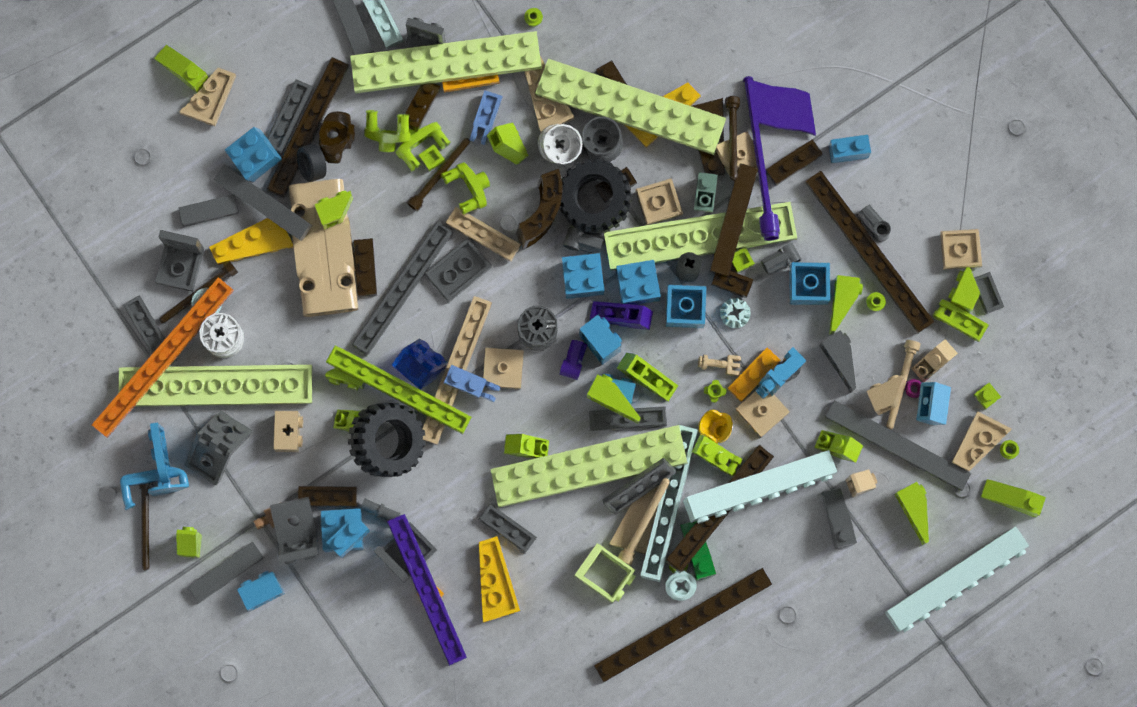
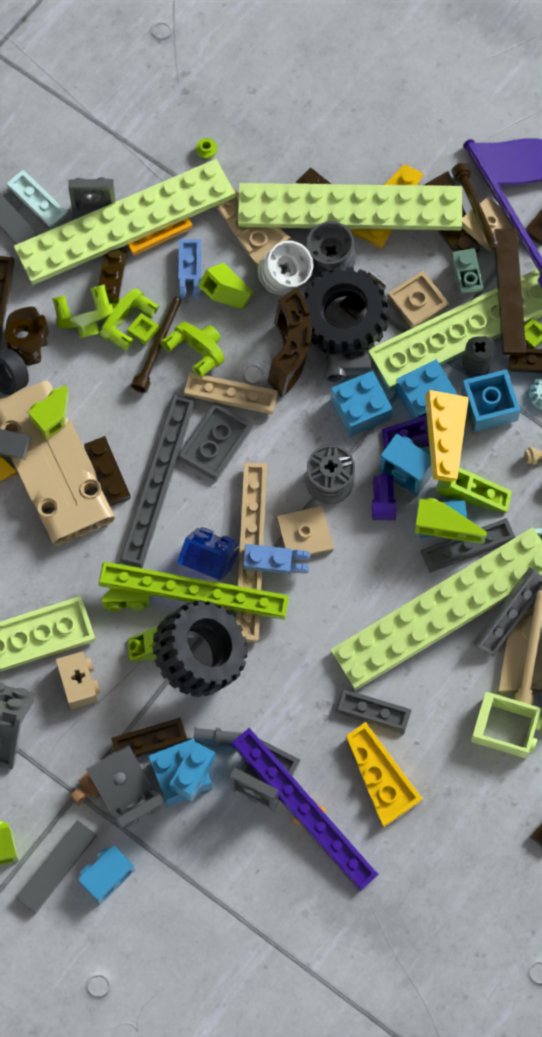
camera: 15 degrees left, 10 degrees down
(525, 446) = (361, 610): lime slope -> none
(639, 320) = (445, 429): none -> yellow wing

